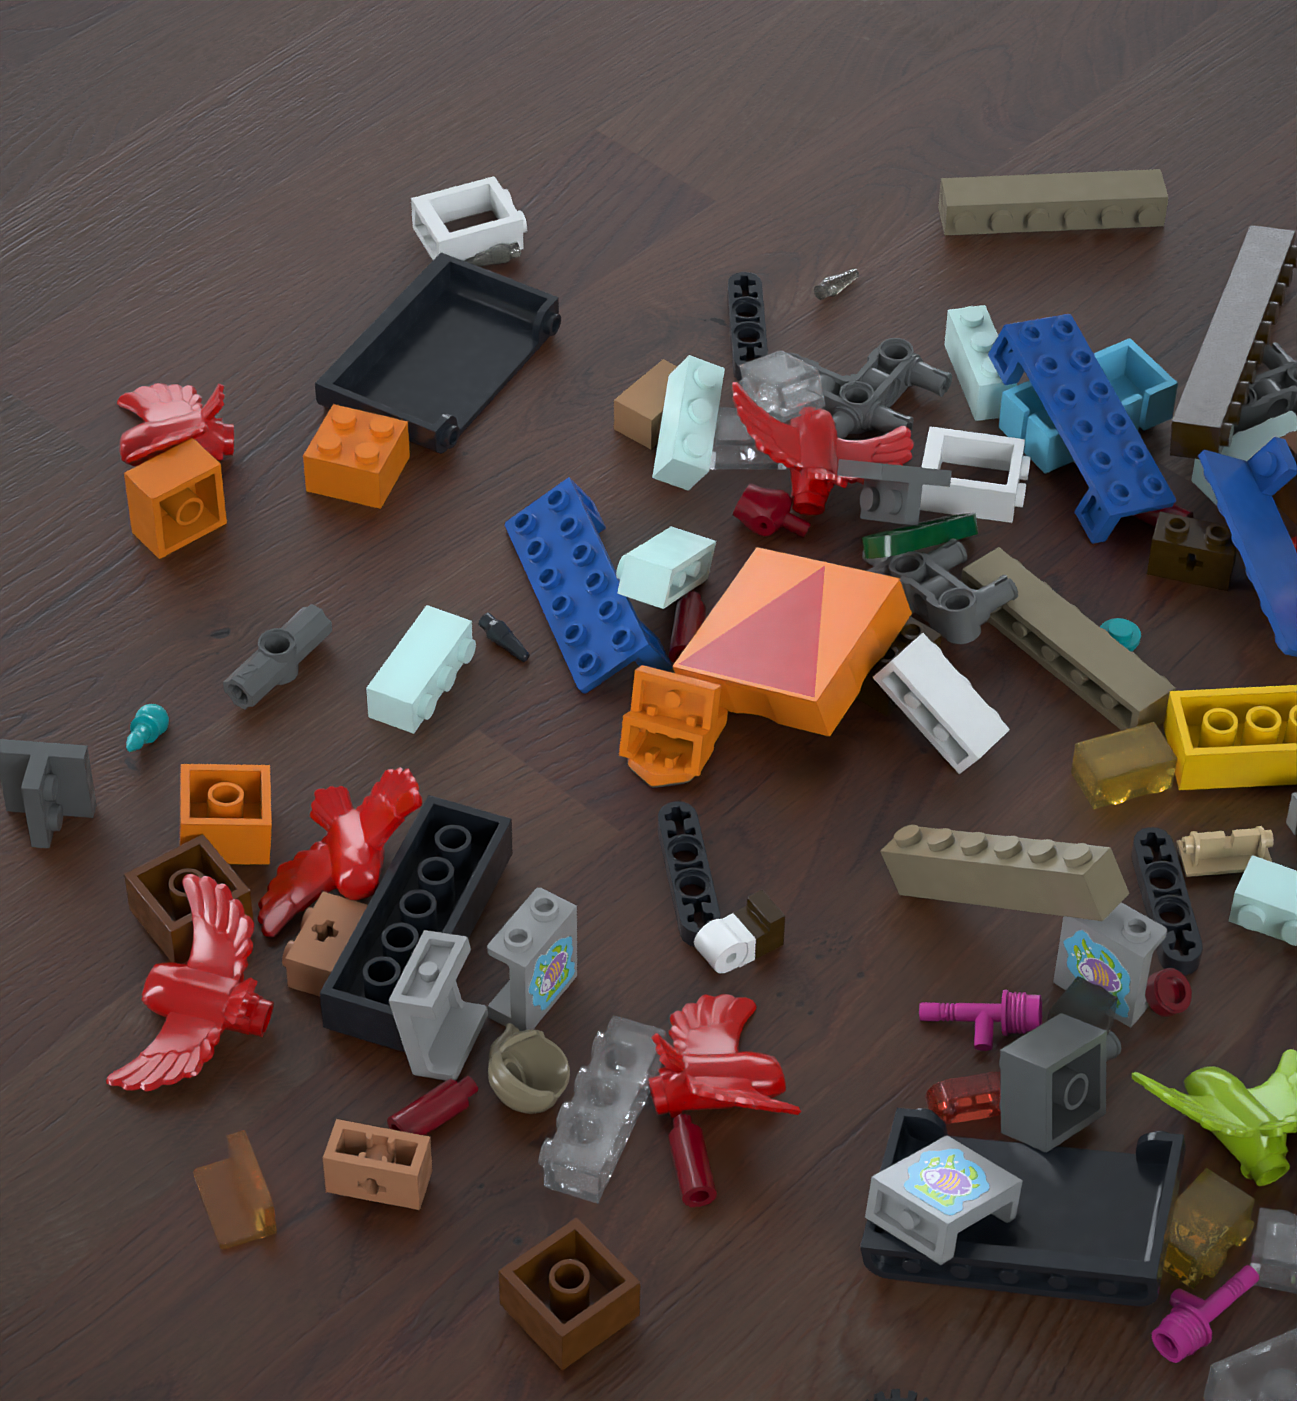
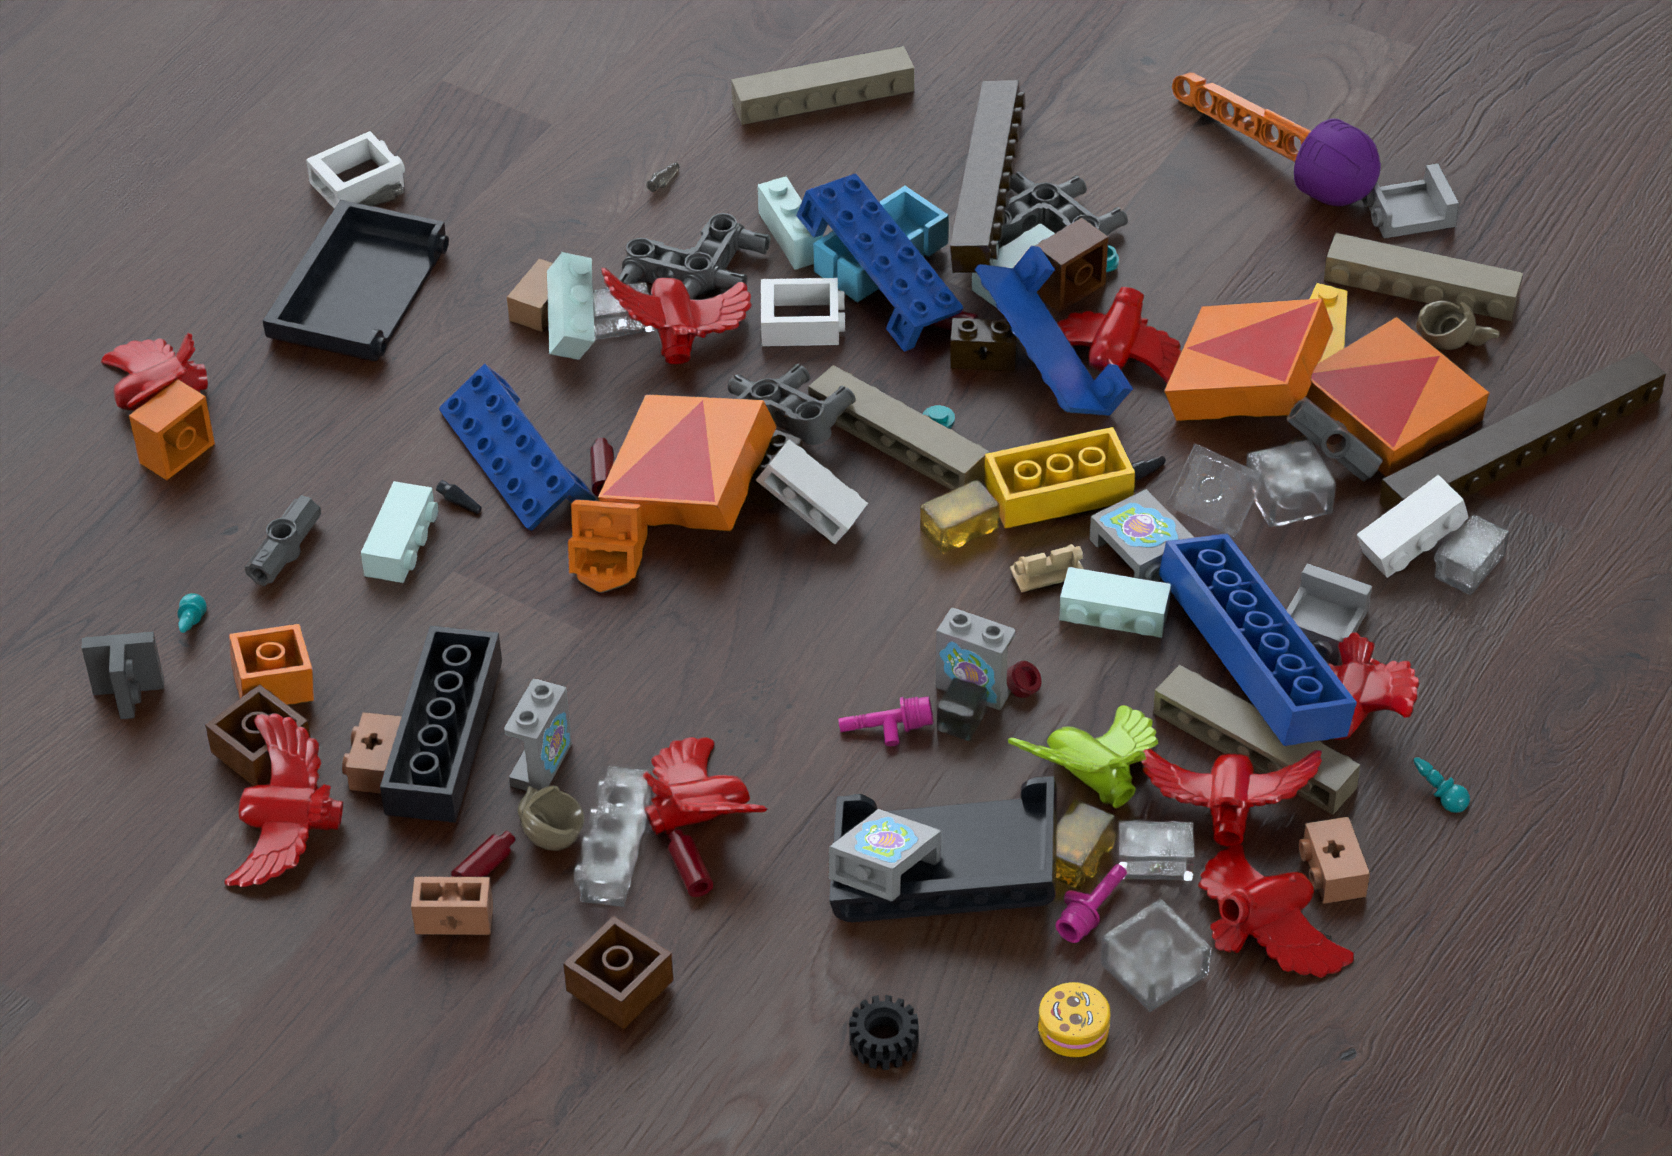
camera: 10 degrees left, 0 degrees up
(236, 1195) = (348, 947): clear orange panel -> none
(349, 853) = (376, 679): red animal -> none
(356, 456) = (309, 373): orange brick -> none
(429, 1010) = (471, 793): light grey panel -> none
(665, 567) = (576, 421): light aqua brick -> none
(686, 873) = (643, 652): black beam -> none
(742, 935) = (694, 690): leg -> none
(746, 326) = (600, 222): black beam -> none
(768, 510) = (646, 365): dark red piece -> none
(783, 385) = (640, 264): clear brick -> none
(892, 491) = (742, 333): dark grey bracket -> none
(918, 537) = (770, 365): dark green beam -> none
(966, 1097) = (891, 780): clear red beam -> none
(1005, 872) = (885, 608): dark tan brick -> none
(1055, 1081) = (951, 756): dark grey brick -> none
(1167, 900) = (1012, 611): black beam -> none

